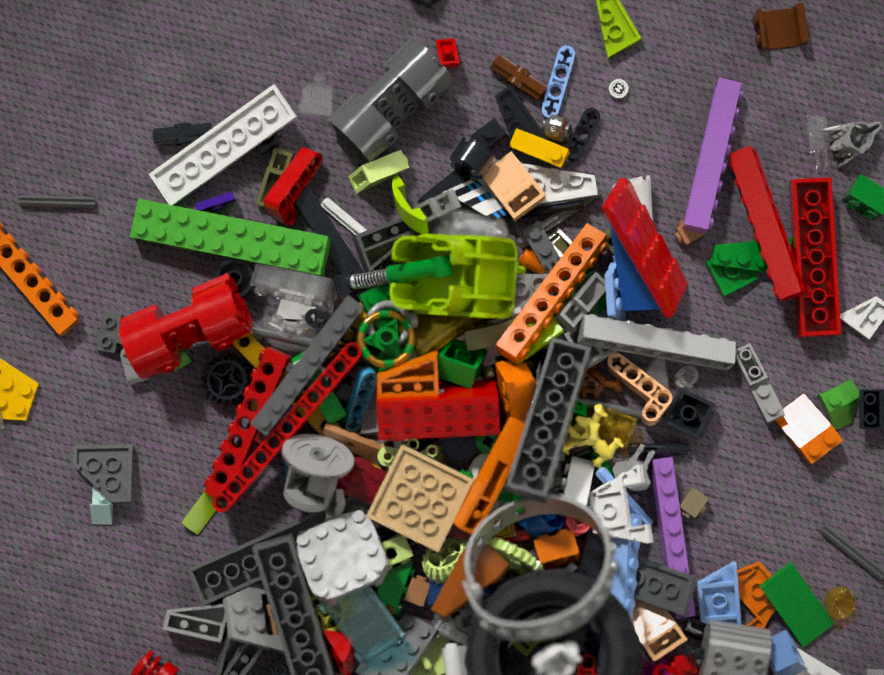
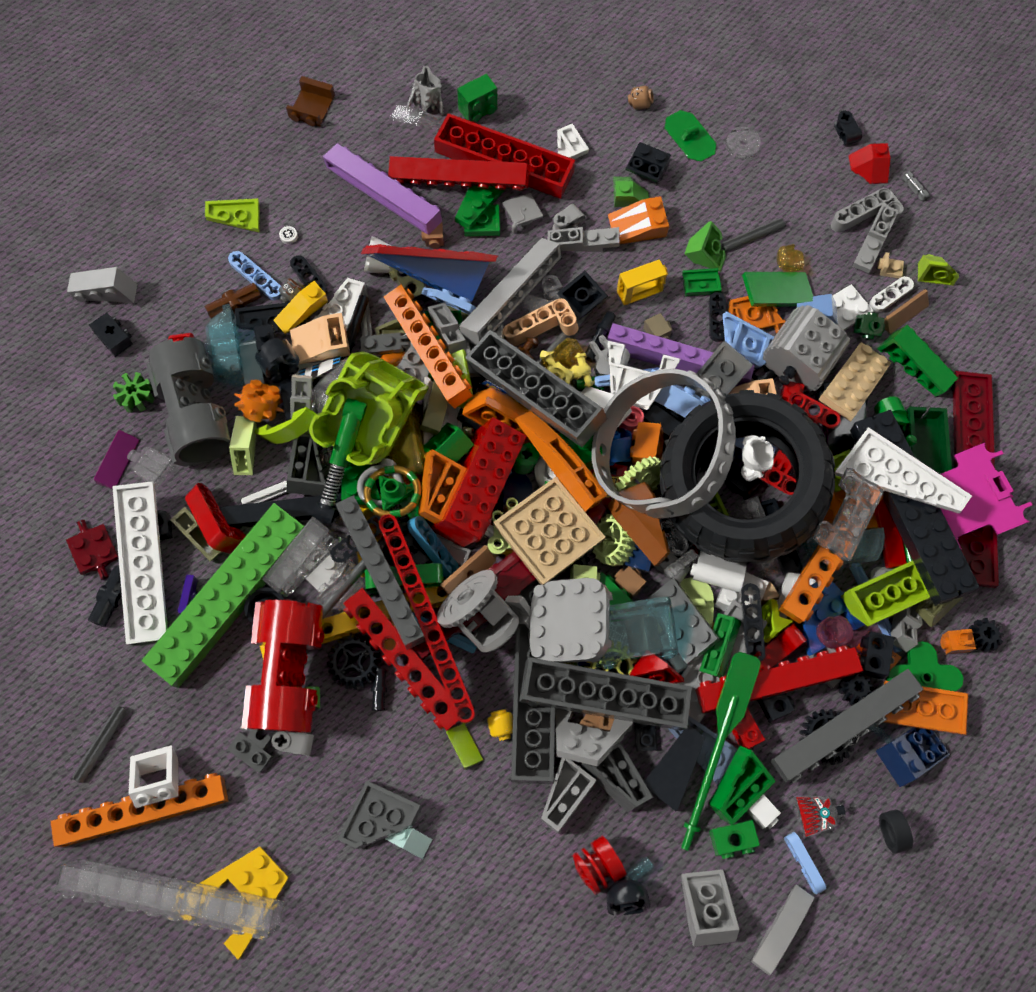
camera: 70 degrees left, 15 degrees down
(63, 257) = (148, 763): none -> white window
(213, 414) = (379, 690): none -> black pin
(217, 92) = (92, 549): none -> dark red plate
(234, 535) = (500, 724): none -> yellow head
(309, 63) = (115, 459): none -> magenta slope
(375, 44) = (133, 392): none -> bright green gear
(424, 163) = (259, 401): none -> orange brick
(463, 101) = (224, 348): none -> clear light blue windscreen
(465, 128) = (250, 367): none -> dark grey beam
(734, 465) = (641, 282): none -> yellow window
(749, 544) = (713, 310): none -> black beam
(761, 306) = (522, 210): none -> light grey hat
(769, 523) = (701, 282): none -> green plate
(777, 357) = (568, 218): none -> light grey piece
(810, 512) = (706, 248): none -> bright green slope

